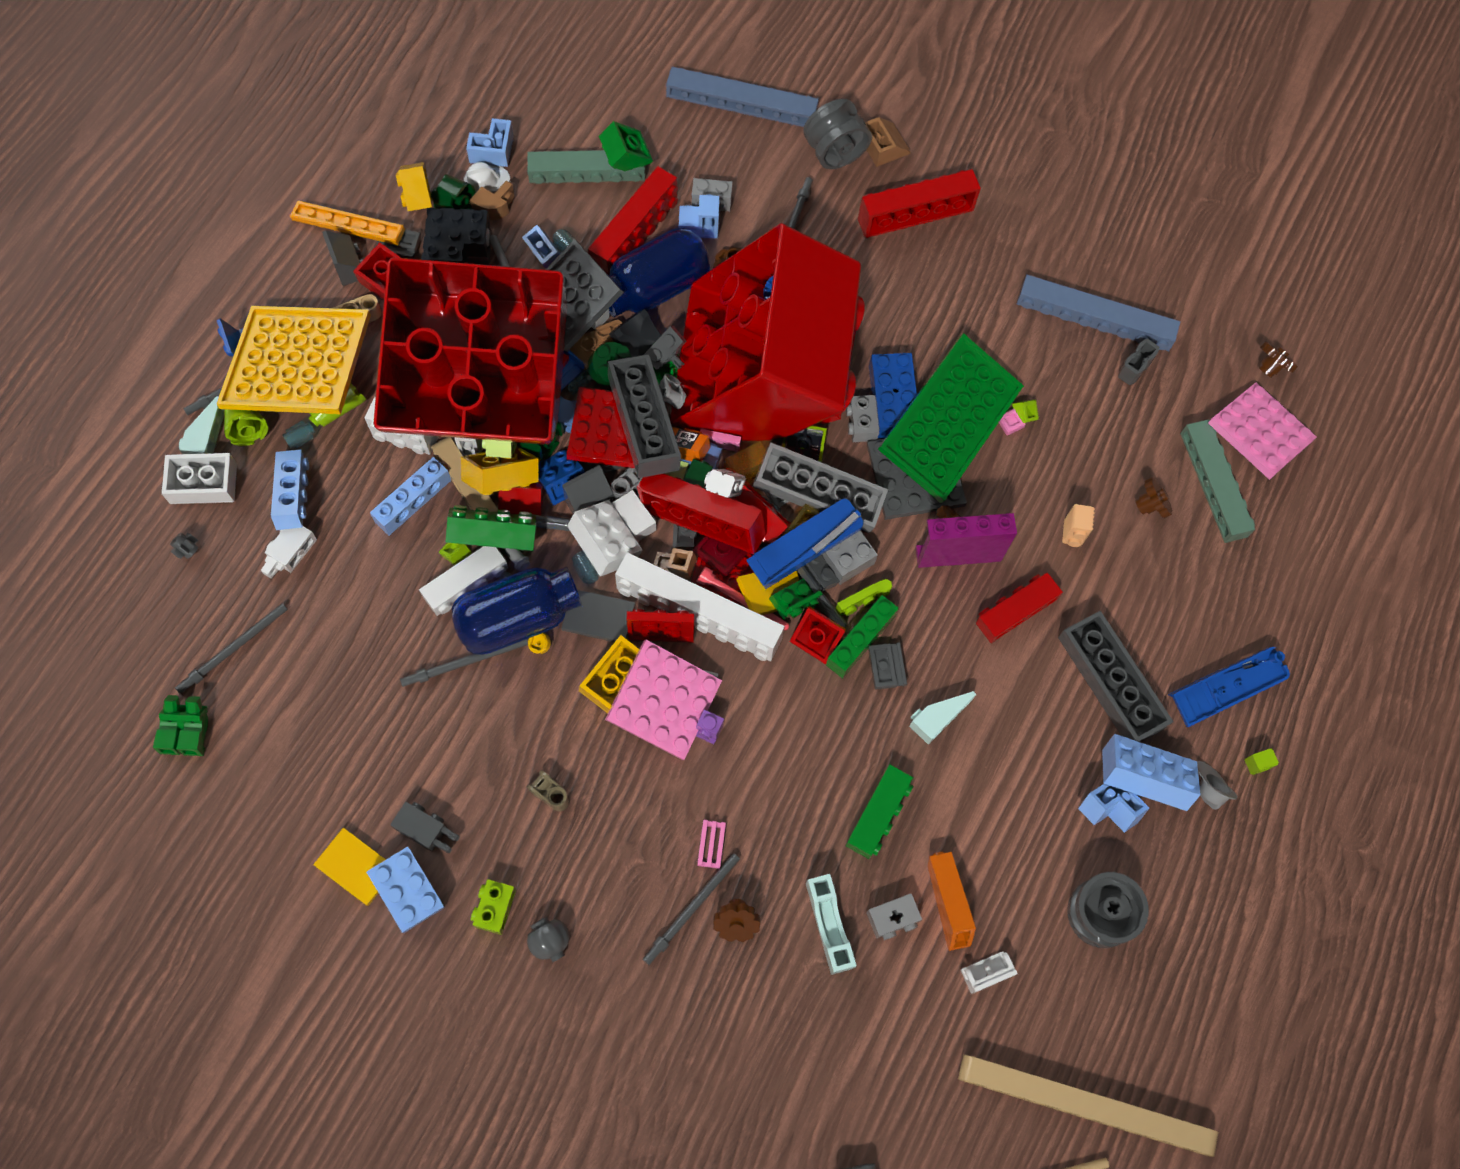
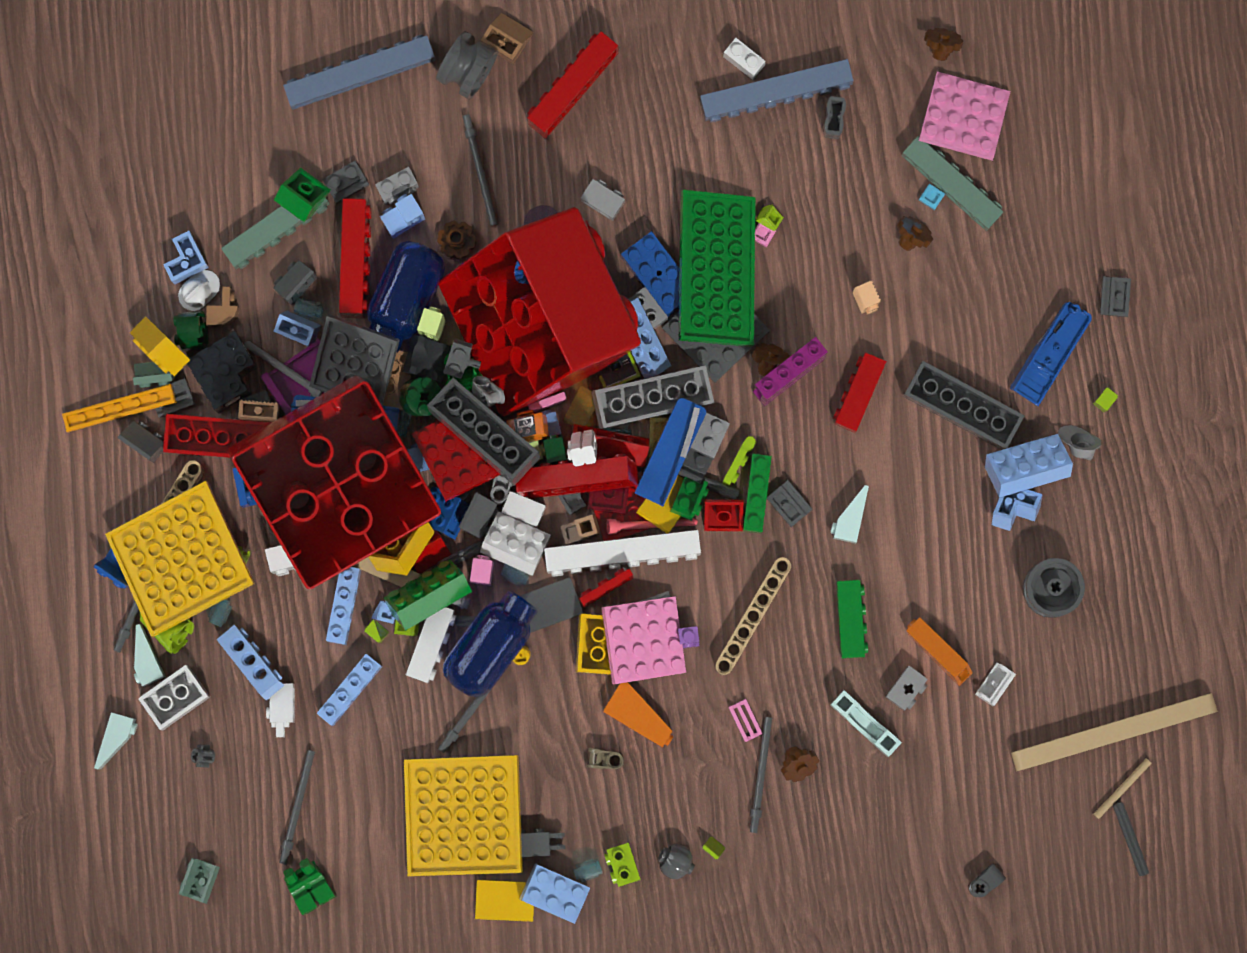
camera: 25 degrees left, 15 degrees up
(89, 653) = (199, 880): none -> sand green bracket
(121, 481) = (116, 735): none -> light aqua slope
(359, 572) = (349, 690): none -> light blue brick
(374, 755) = (463, 816): none -> yellow plate
(396, 213) = (150, 373): none -> sand green bracket
(423, 537) = (376, 631): none -> lime slope
(439, 527) = (383, 613): none -> light blue slope
(456, 889) = (587, 870): none -> clear light blue brick
(556, 542) = (482, 570): none -> bright pink brick
(571, 215) = (294, 282): none -> dark grey slope
(595, 951) = (713, 847): none -> lime slope
(608, 765) = (636, 714): none -> orange slope
(662, 306) = (431, 324): none -> yellowish green brick
(676, 166) = (346, 182): none -> dark grey plate
(790, 738) = (754, 606): none -> tan beam
(843, 437) = (649, 354): none -> light blue brick
(884, 307) = (603, 199): none -> light grey brick
(1084, 271) = (744, 58): none -> white brick
(1189, 482) = (931, 196): none -> medium azure tile
(1323, 672) = (1115, 296): none -> dark grey plate

